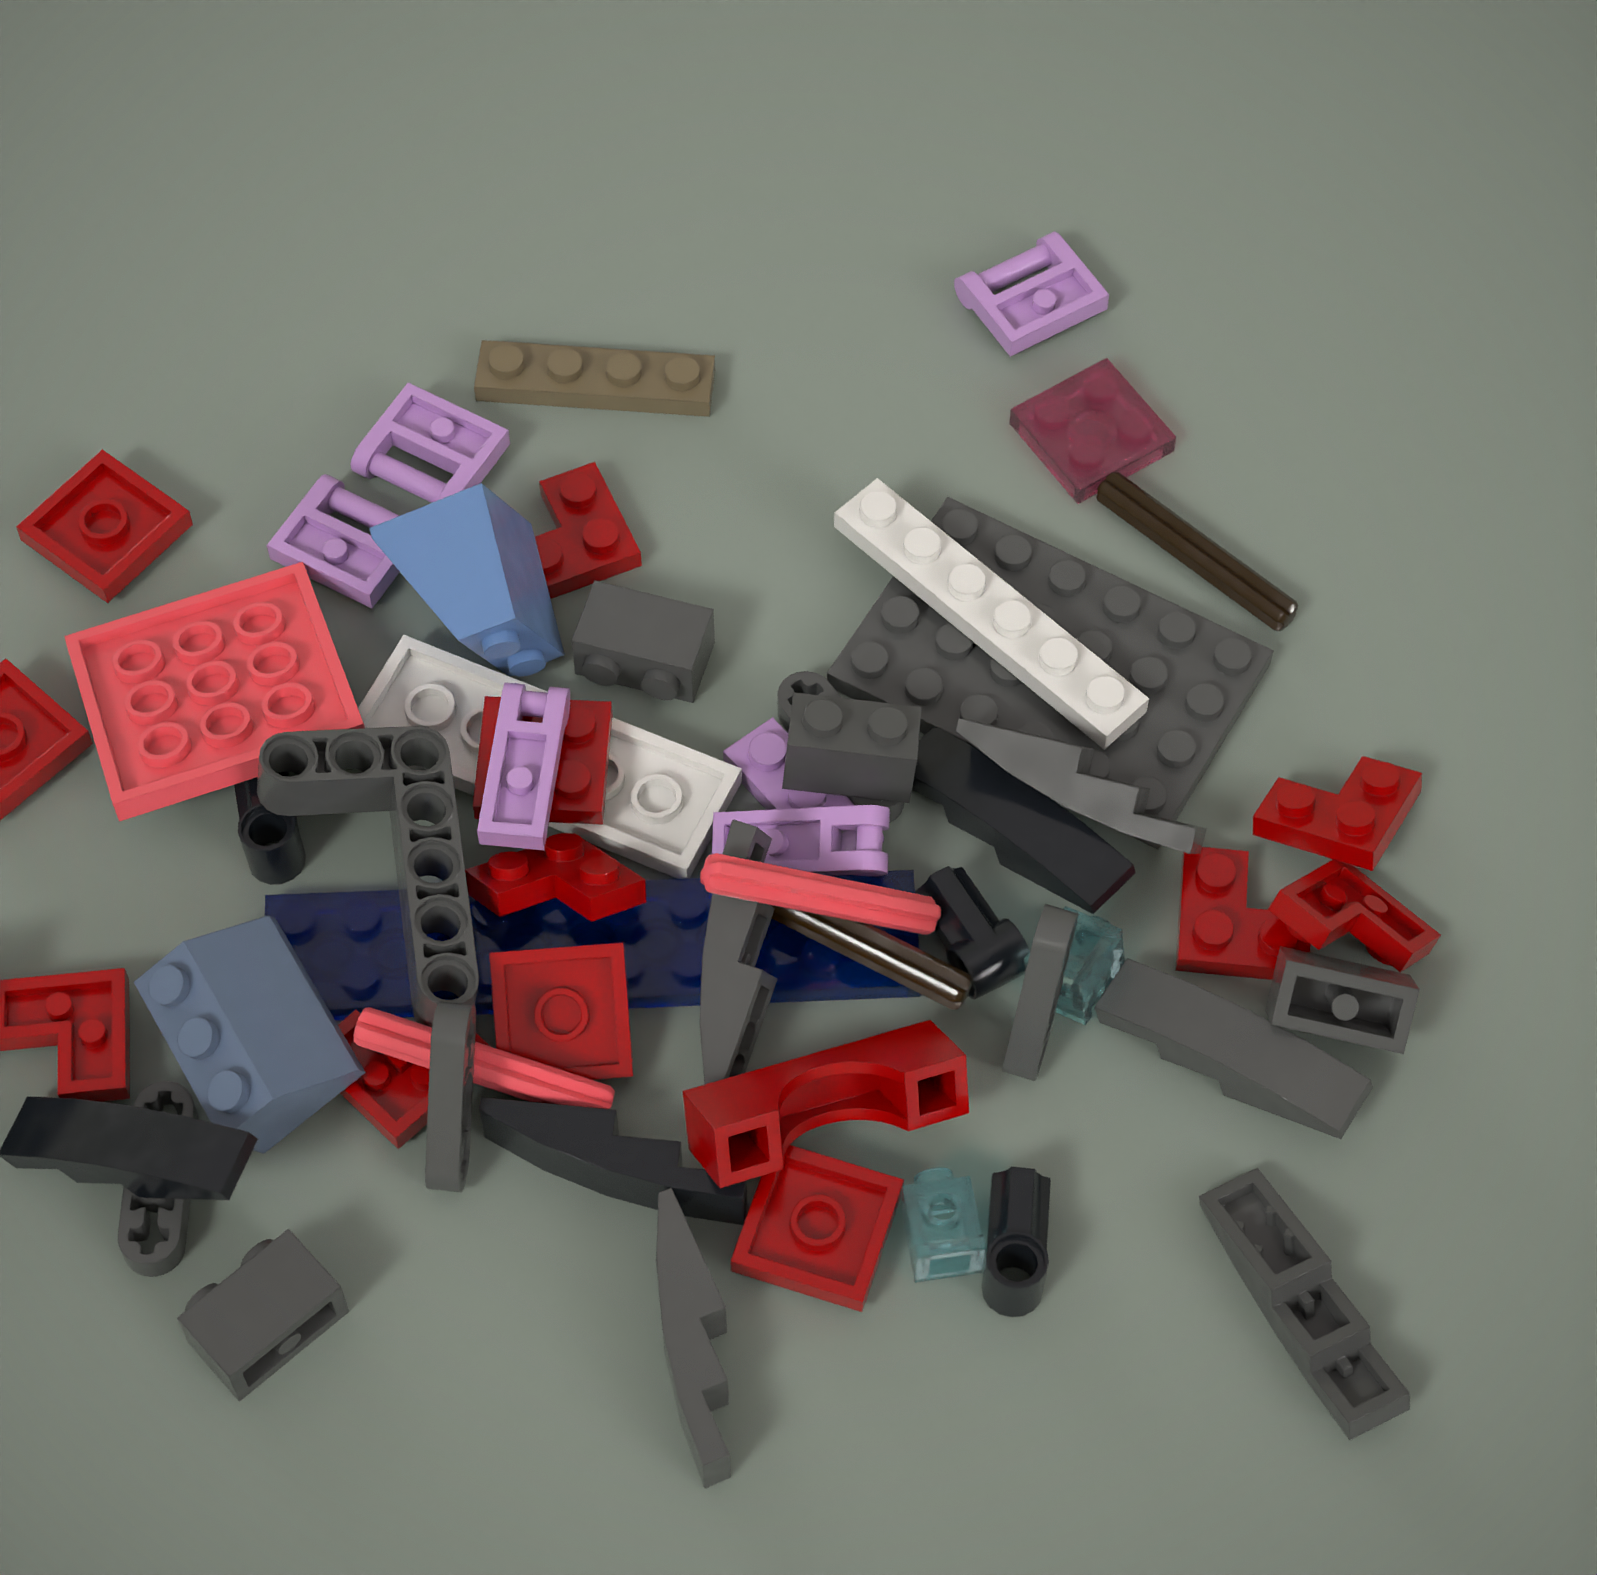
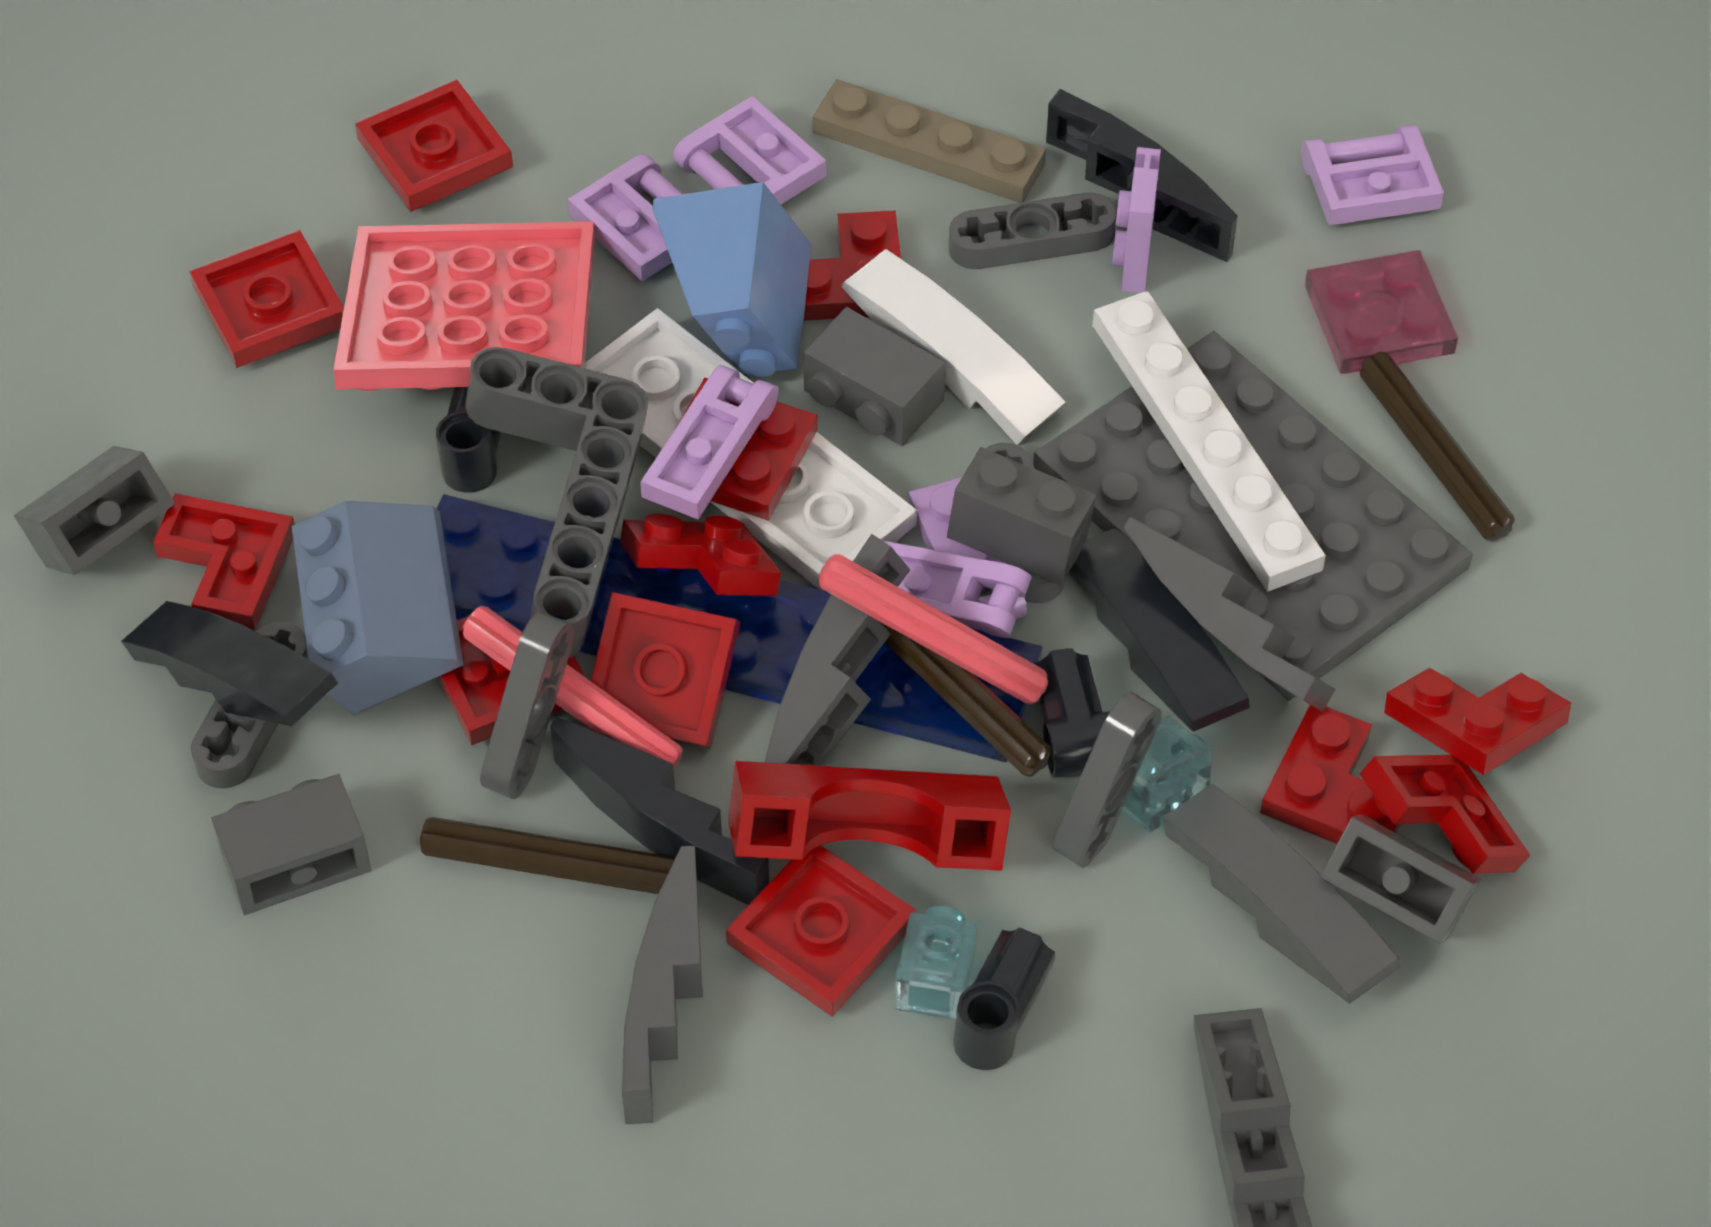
camera: 20 degrees right, 5 degrees down
(522, 1239) = (545, 855): none -> dark brown axle
(686, 570) = (977, 360): none -> white slope
(720, 466) = (990, 222): none -> dark grey beam
(837, 363) = (1183, 202): none -> black slope
(841, 408) = (1137, 214): none -> lavender plate

